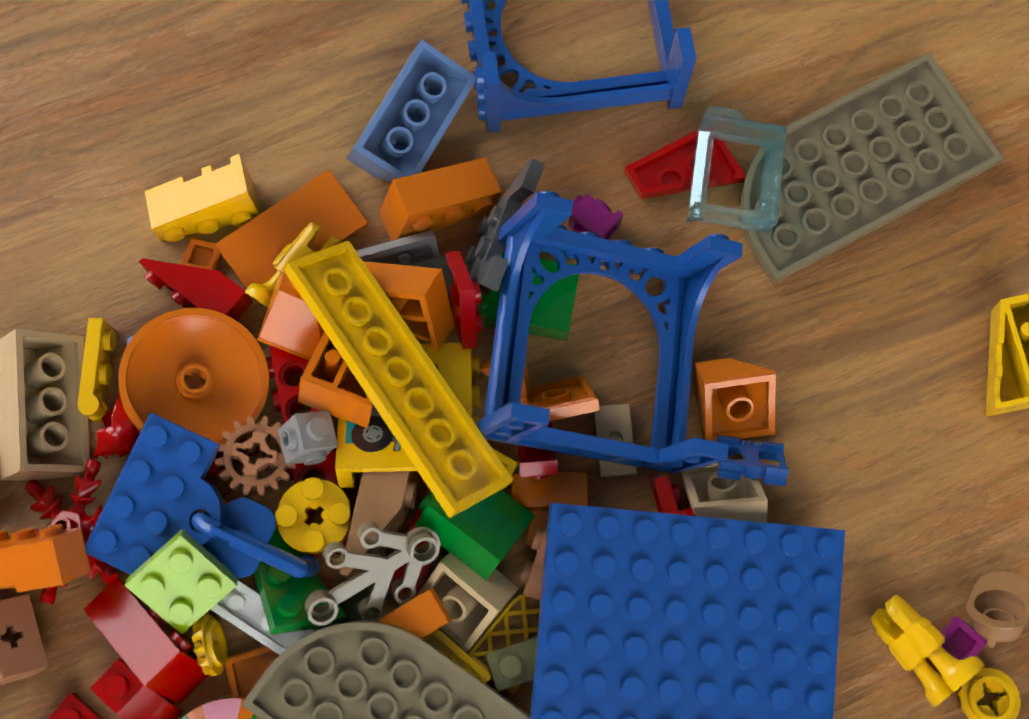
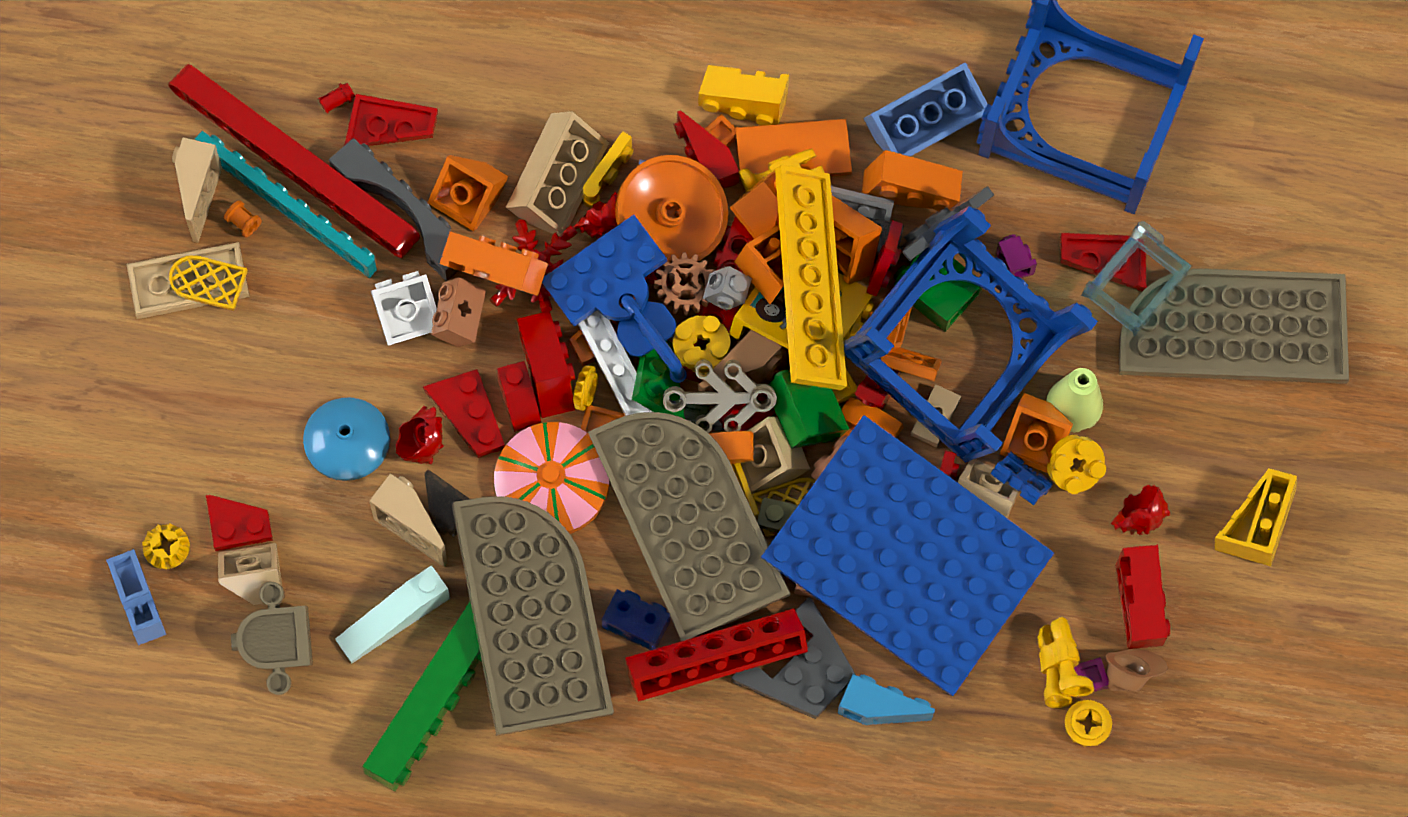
camera: 30 degrees right, 5 degrees down
(181, 581) = (594, 333): lime plate -> none
(751, 335) = (1078, 398): none -> yellowish green cone
(801, 427) = (1062, 458): none -> yellow plate
(896, 422) = (1142, 511): none -> red hair
(959, 521) = (1142, 597): none -> red wedge

